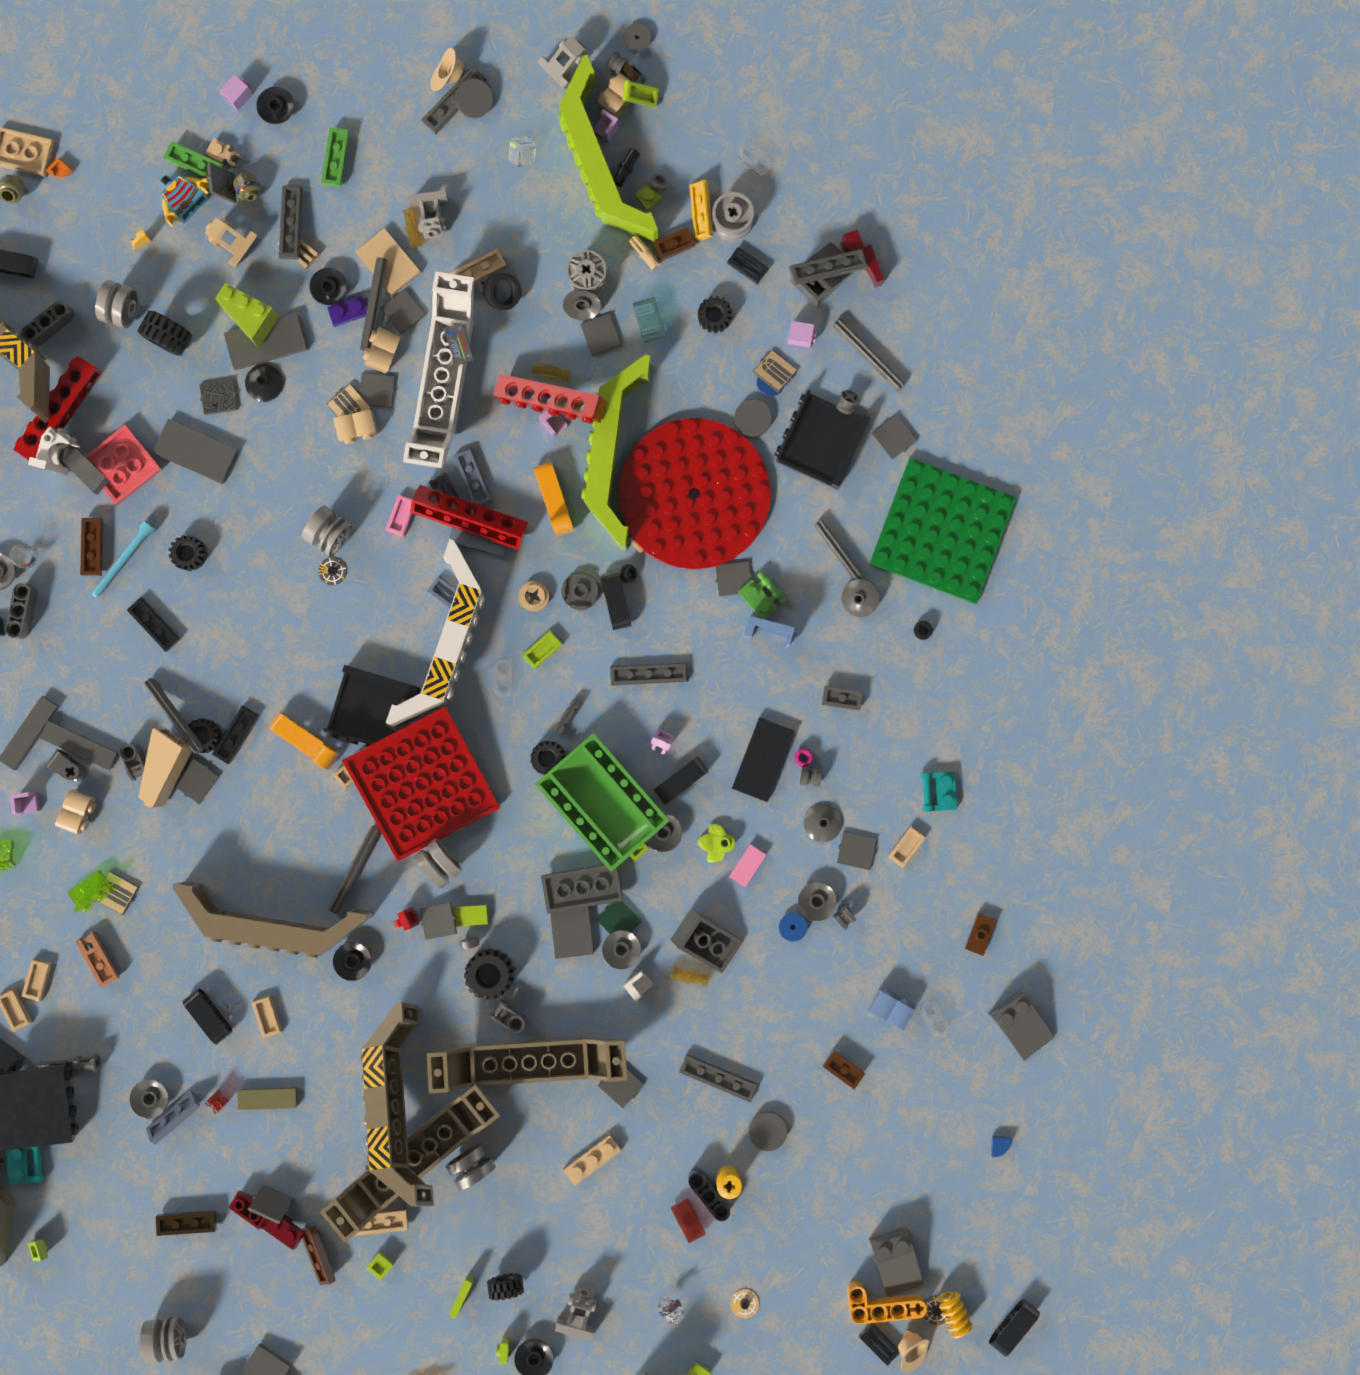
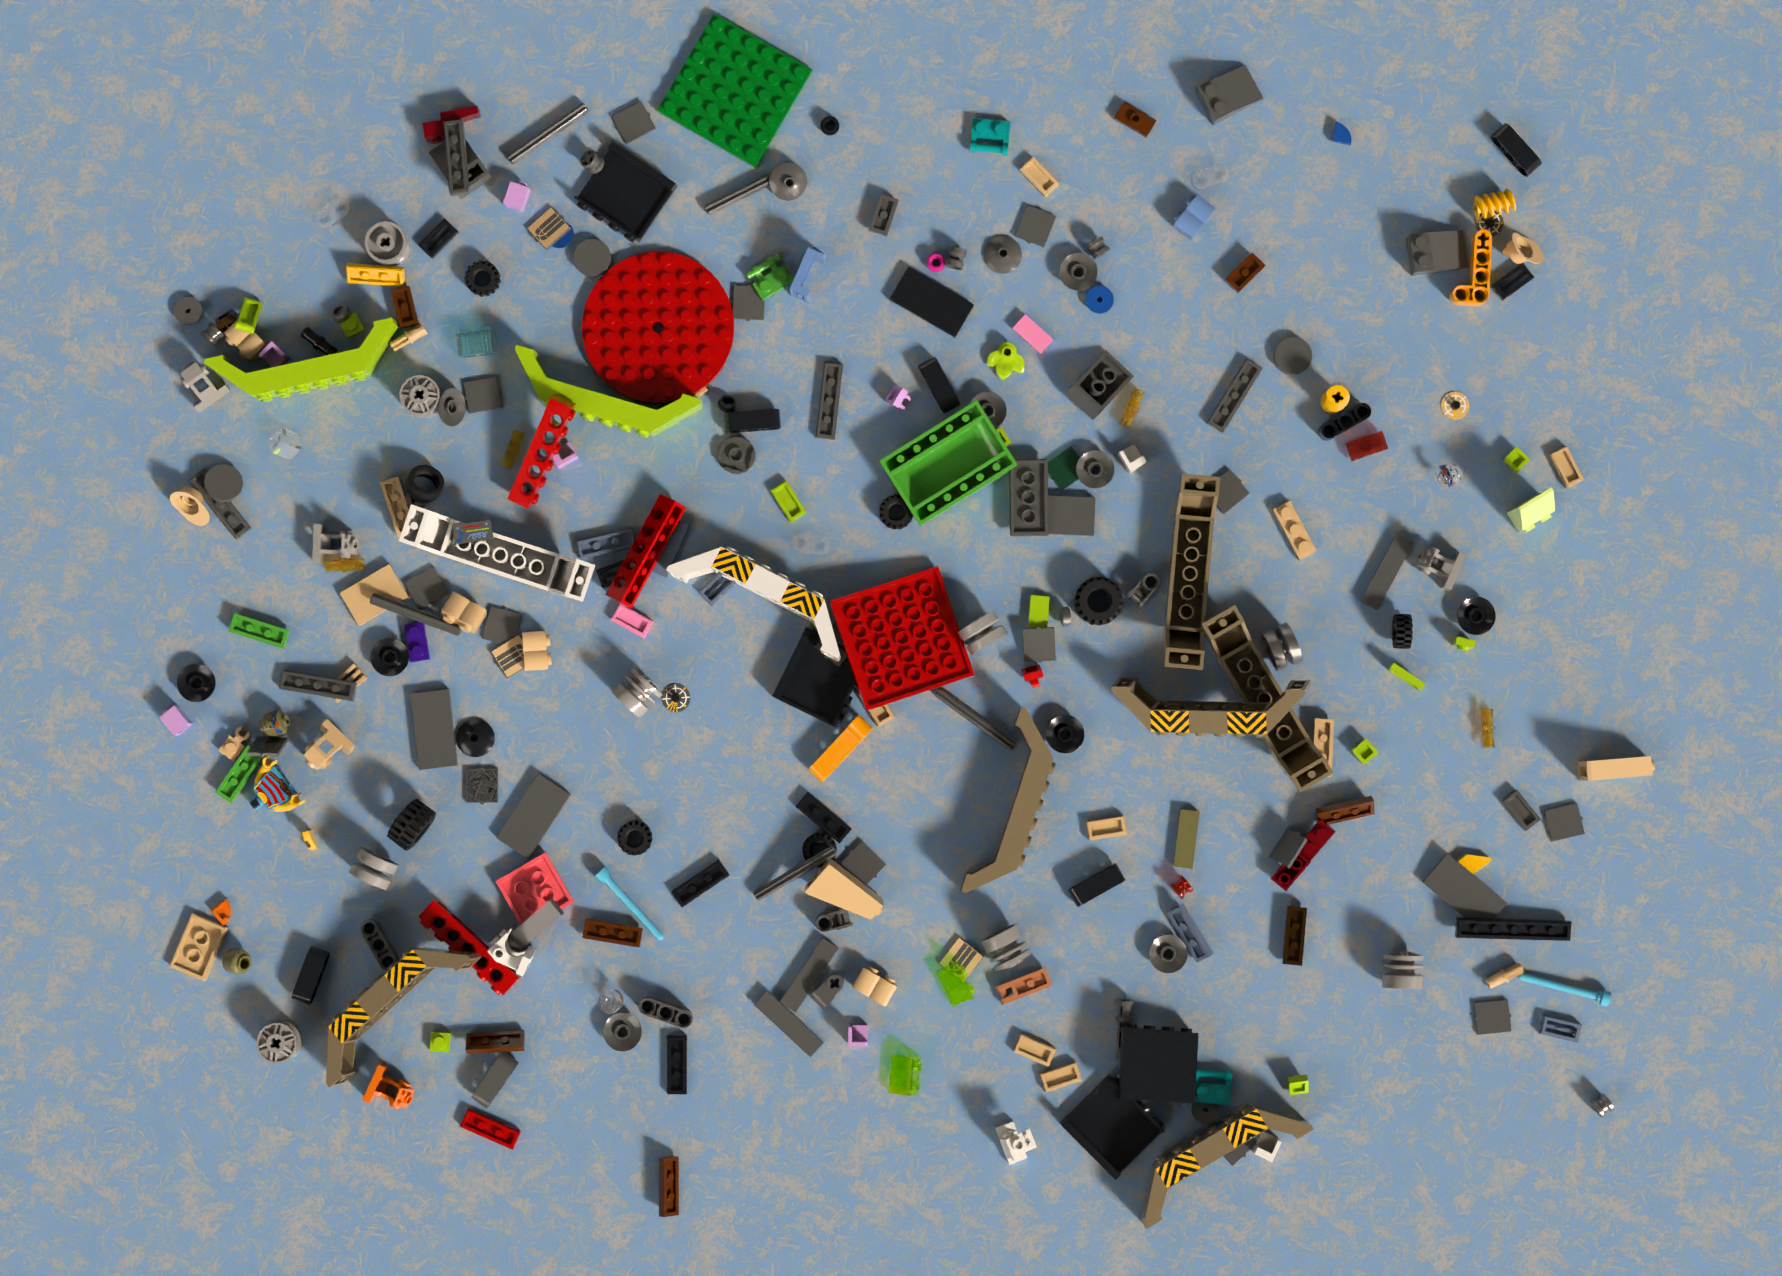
camera: 80 degrees left, 0 degrees up
(130, 936) = (1006, 947): none -> light grey wheel
(248, 313) = (404, 740): lime wedge -> none
(532, 587) = (724, 501): tan gear -> none
(553, 499) = (641, 466): light orange beam -> none
(565, 1259) = (1386, 572): none -> dark grey tile
(568, 715) = (858, 486): dark grey axle -> none

